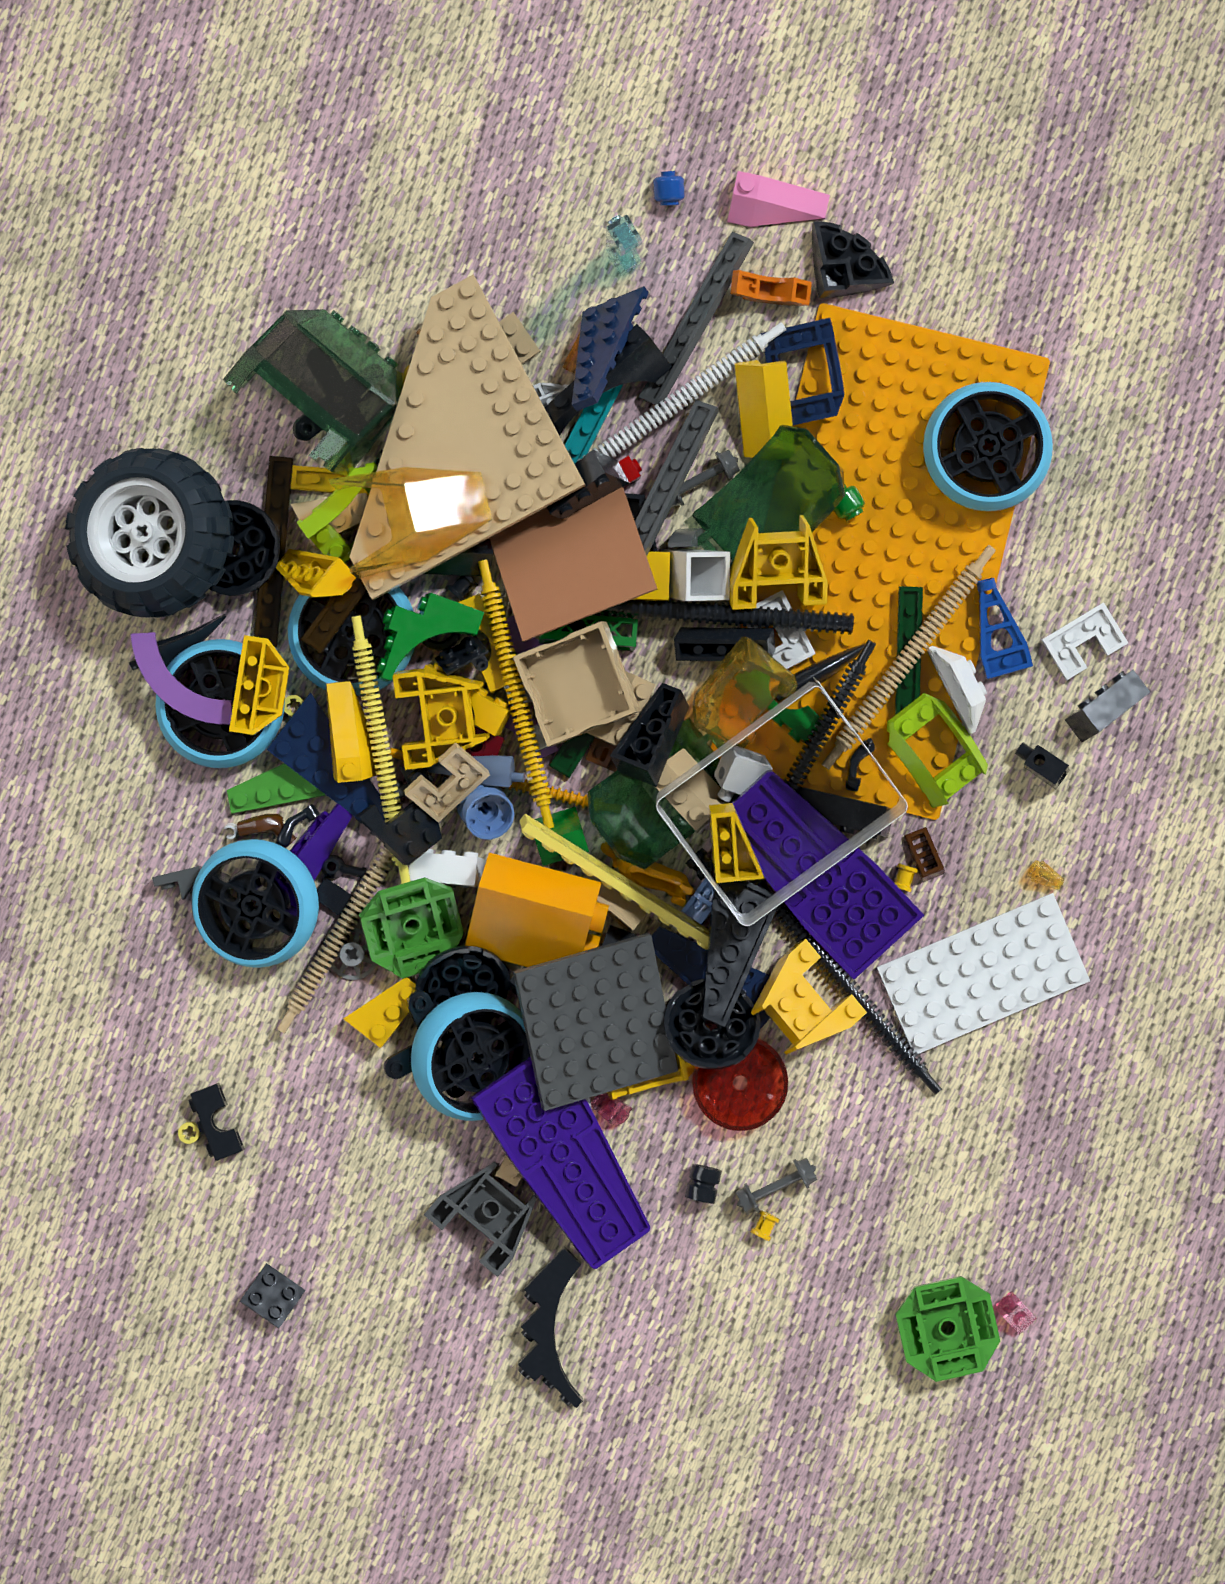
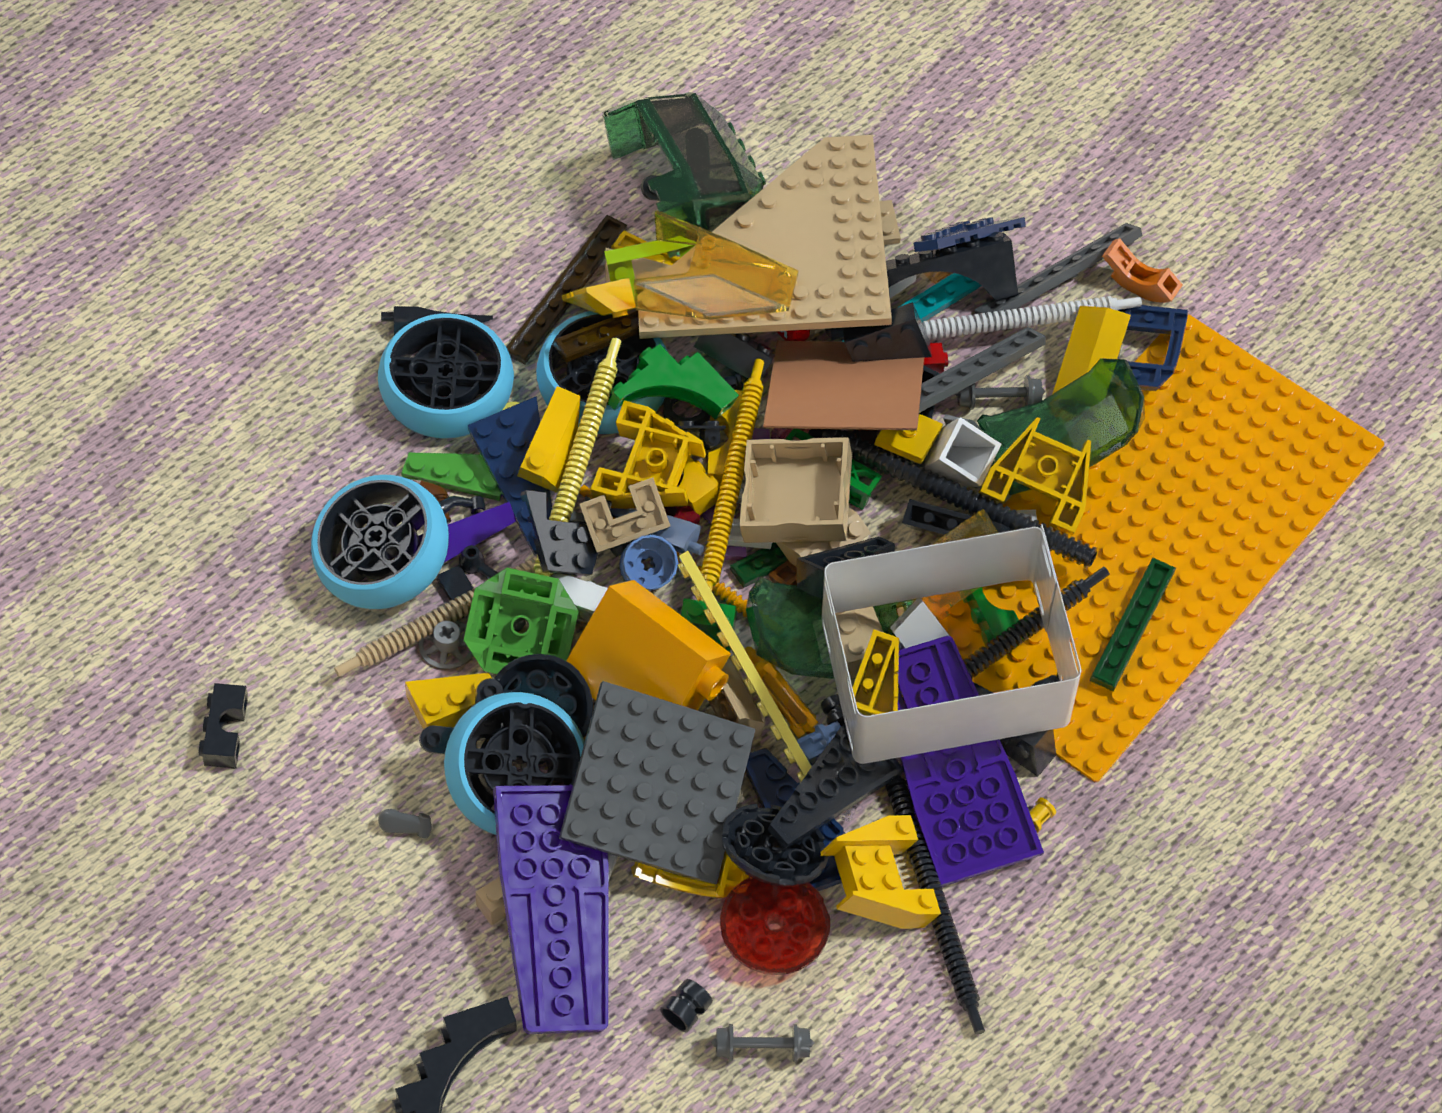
camera: 20 degrees right, 30 degrees down
(170, 689) = (410, 335): medium lavender tile -> none
(185, 879) = (310, 499): dark grey slope -> none
(185, 1126) = (191, 733): light yellow bush -> none
(196, 540) = (464, 202): black wheel -> none
(257, 551) = (533, 261): black brick -> none
(259, 686) = (493, 352): yellow wedge -> none
(272, 1296) = (180, 912): black hinge -> none
(396, 1137) = (398, 822): none -> dark grey piece
(490, 1210) = (451, 926): dark grey wedge -> none
(612, 1111) = (629, 893): clear pink bracket -> none
(622, 243) = (1026, 136): clear light blue arch -> none
(668, 188) = (1083, 167): blue head -> none
(765, 1225) = (730, 1079): yellow bush -> none
(770, 201) = (1169, 210): bright pink wedge -> none
(825, 668) = (1020, 596): black piece -> none
(845, 262) = (1220, 289): black brick -> none
(851, 504) = (1134, 465): green head -> none
(930, 874) = (1069, 822): reddish brown slope -> none
(956, 774) = (1131, 744): lime wedge -> none
(961, 685) = (1175, 662): white wedge -> none
(966, 405) = (1315, 448): black wheel -> none
(974, 570) = (1140, 612): tan hose -> none
(983, 974) = (1080, 943): white plate -> none
(1007, 659) = (1230, 667): blue plate -> none
(1043, 874) = (1186, 877): clear yellow cone -> none
(1053, 769) = (1231, 773): black torso -> none
(1095, 623) = (1299, 678): white plate -> none
(1107, 705) = (1317, 746): wedge -> none

